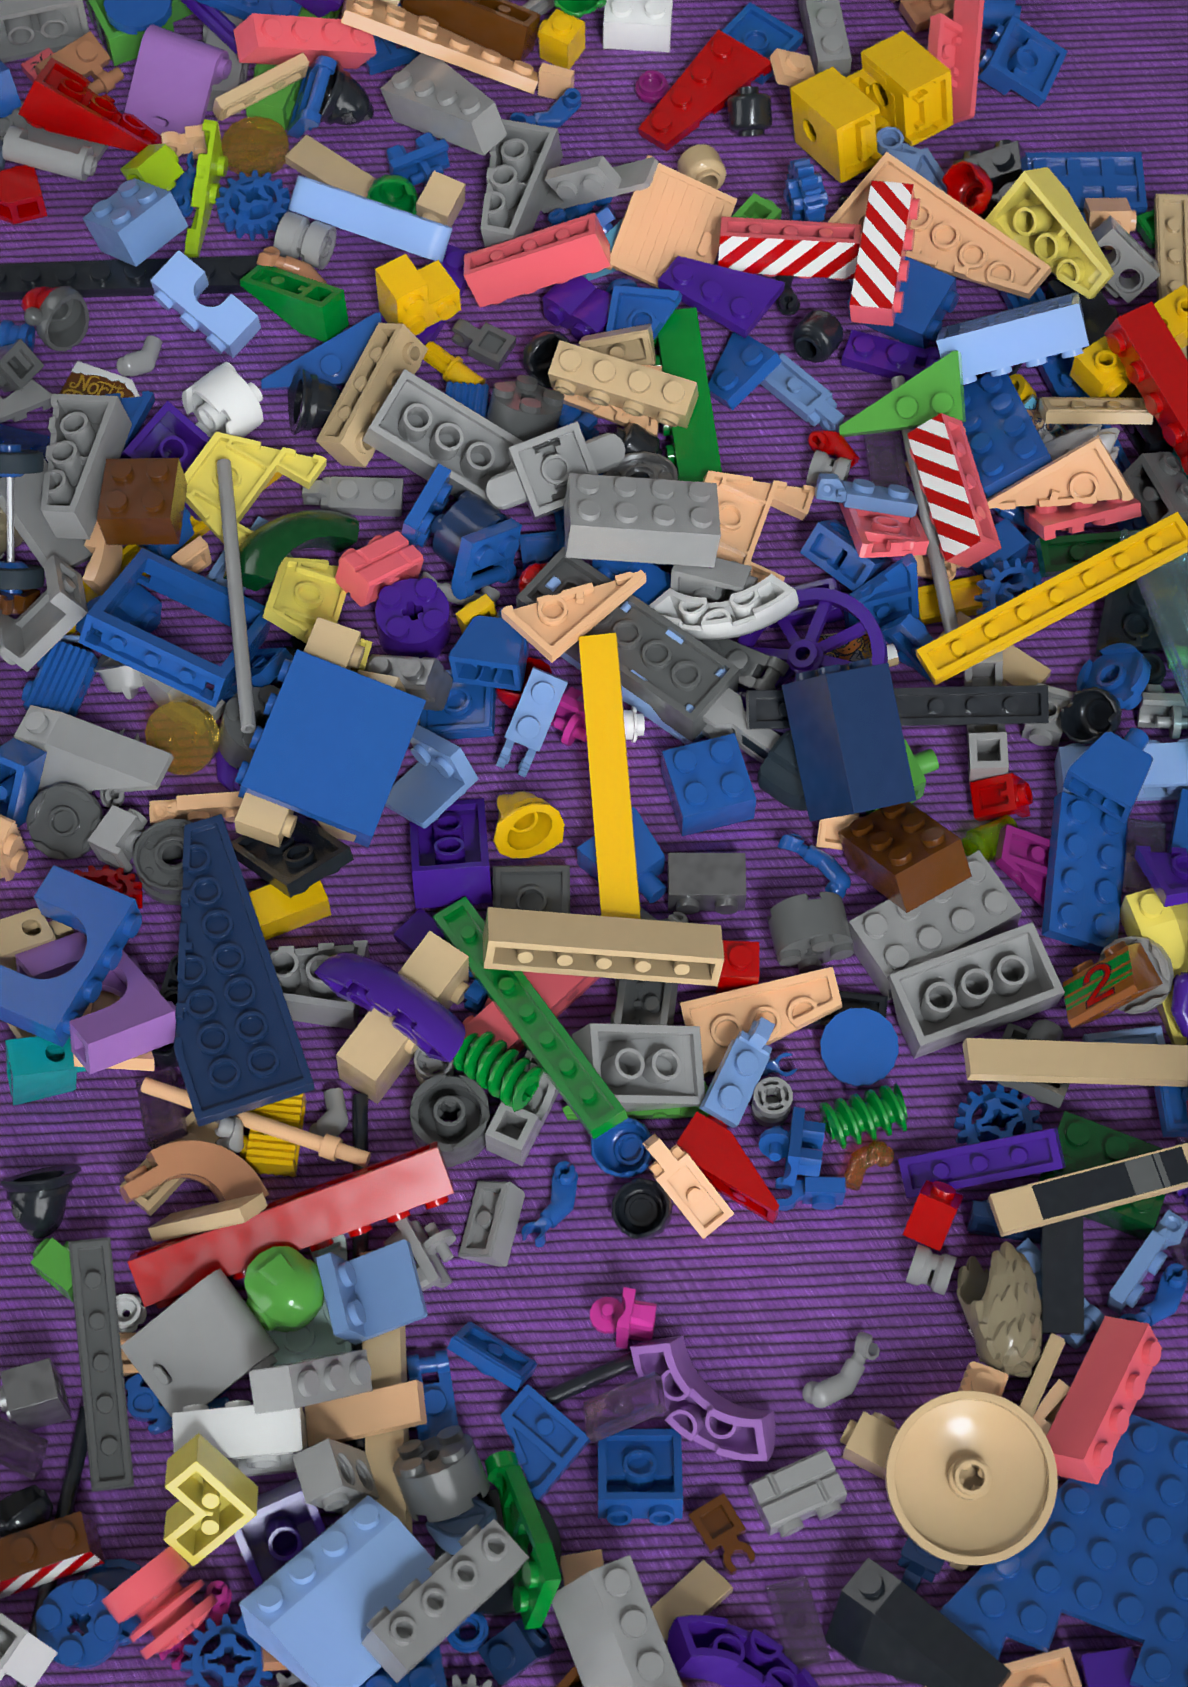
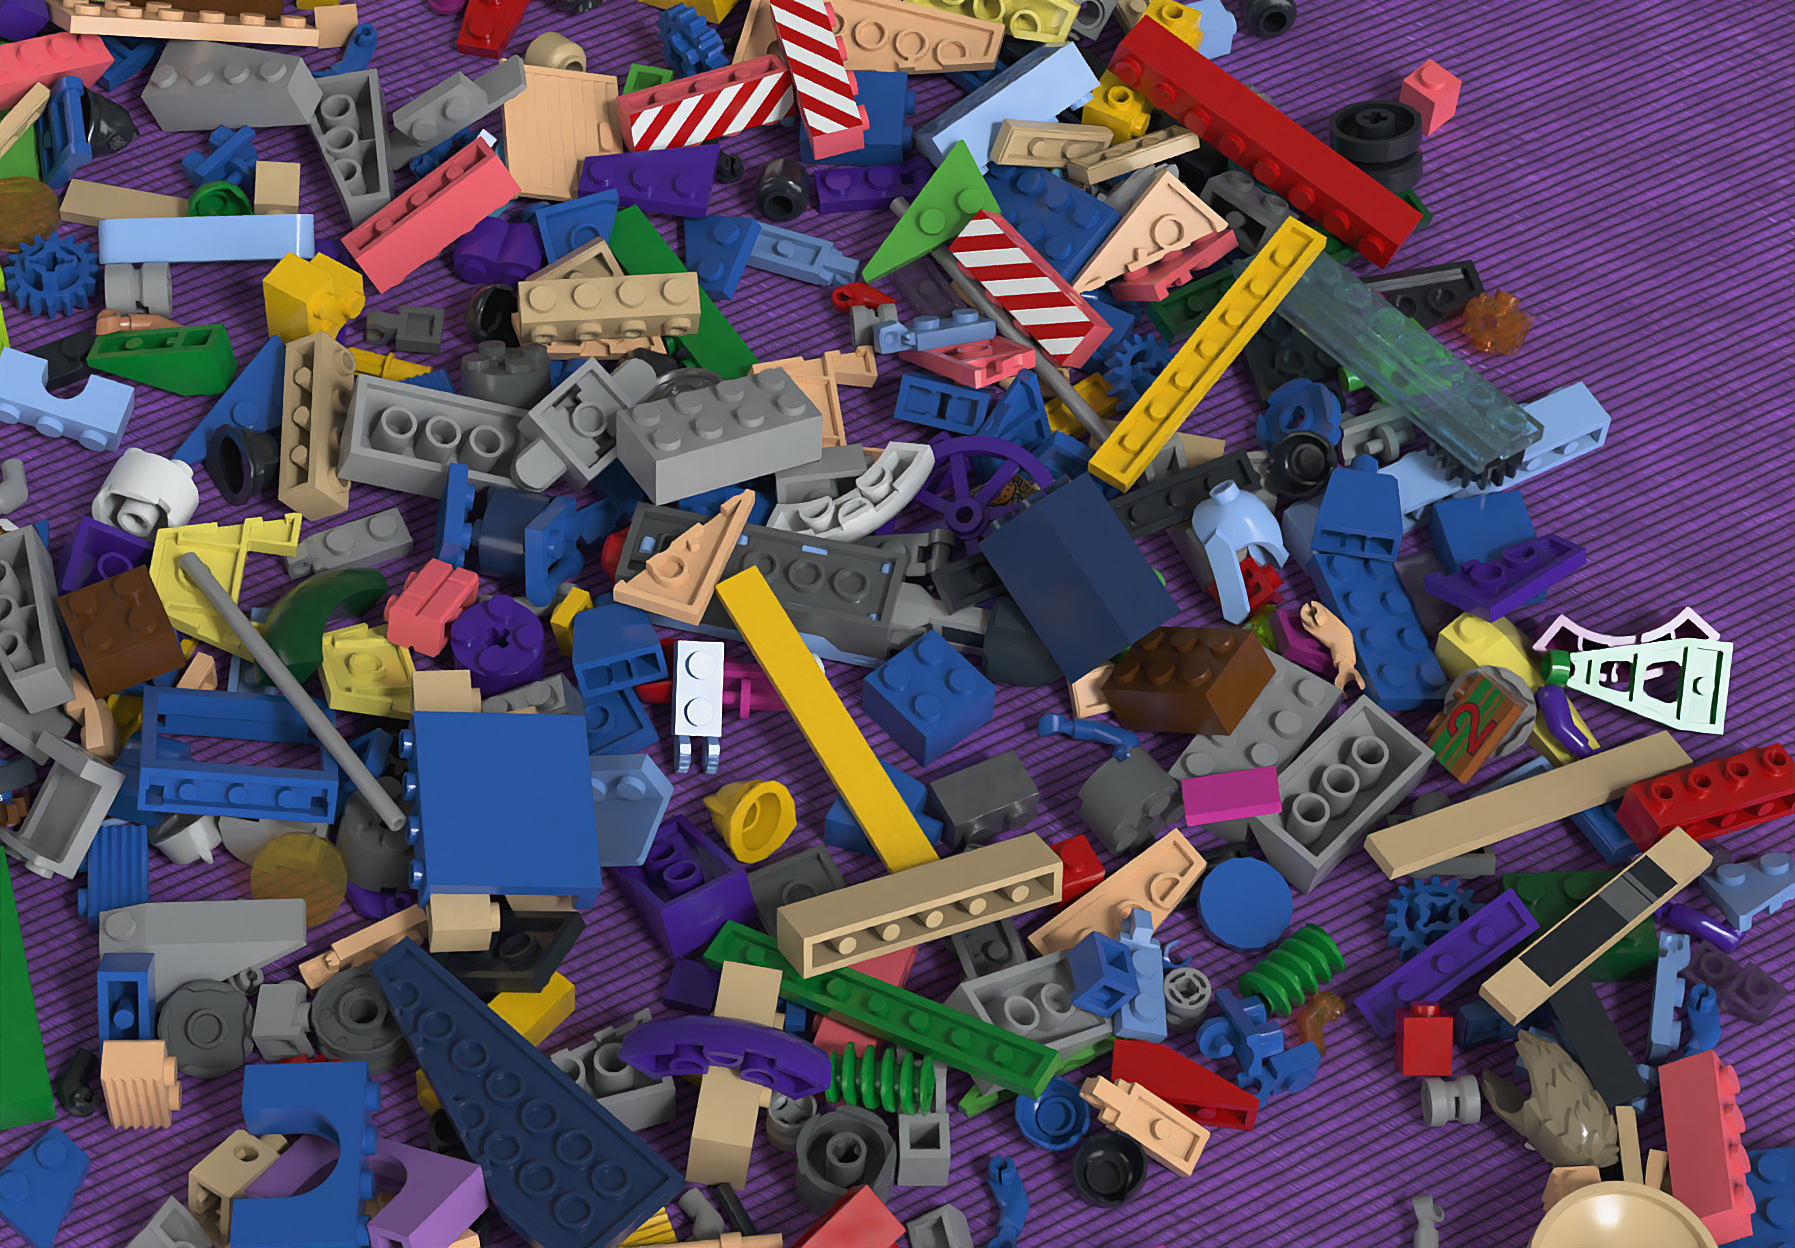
camera: 30 degrees left, 10 degrees down
(707, 1059) = (1102, 975): none -> blue brick
(882, 961) = (1231, 795): none -> dark pink tile
(1001, 742) = (1229, 523): none -> light blue piece
(1029, 376) = (1047, 143): none -> tan tile
(1042, 870) = (1337, 638): none -> light nougat arm

